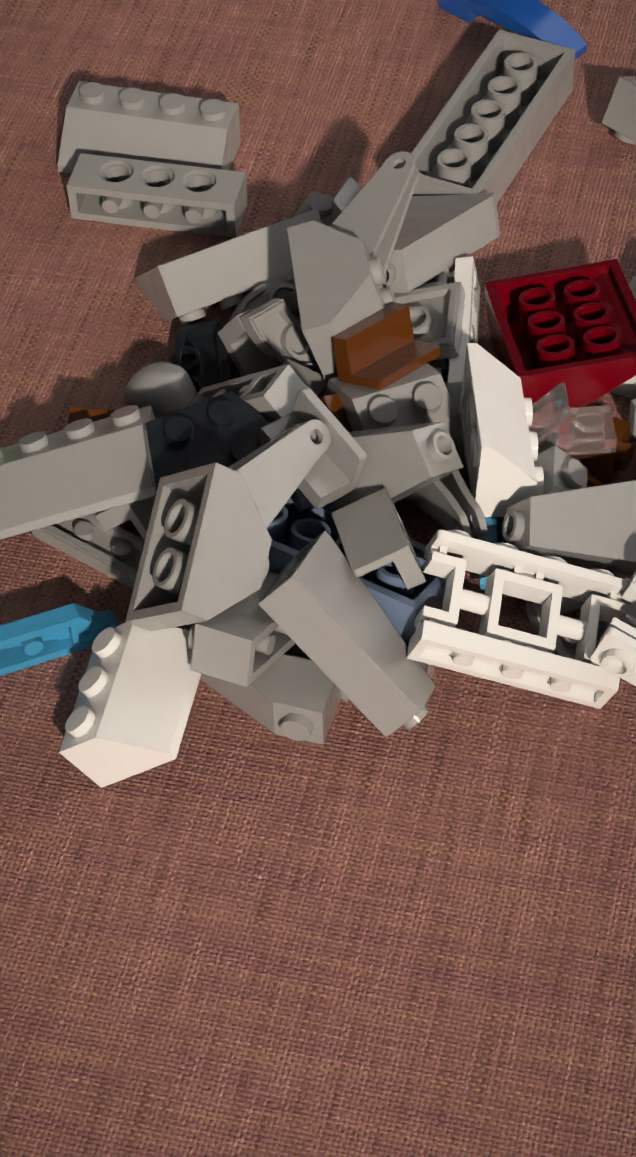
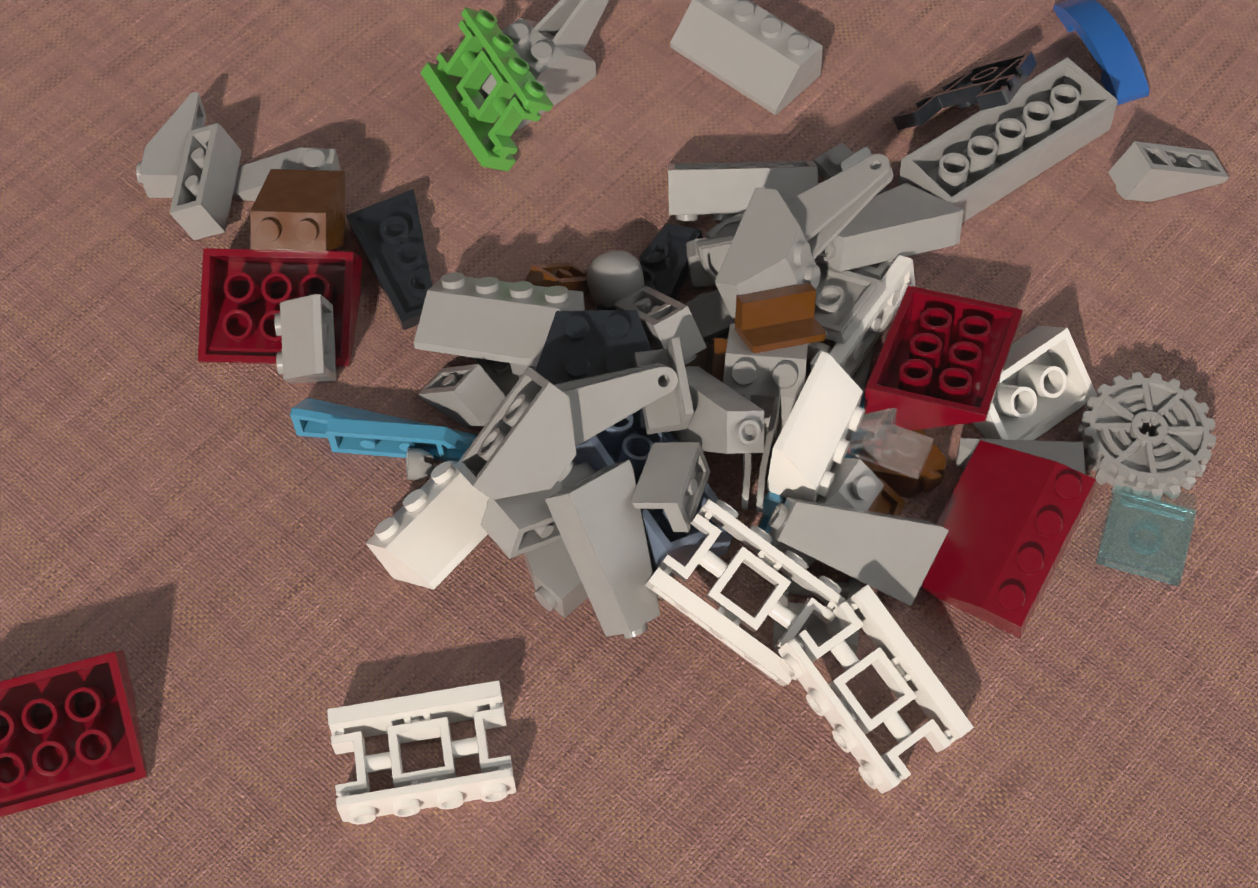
camera: 30 degrees right, 10 degrees up
(55, 660) = (418, 464): none -> light grey hinge
(65, 570) = (464, 394): none -> light grey slope
(157, 195) = (723, 100): light grey brick -> none
(239, 901) = (412, 720): none -> white fence
(443, 73) = (986, 84): none -> black wing

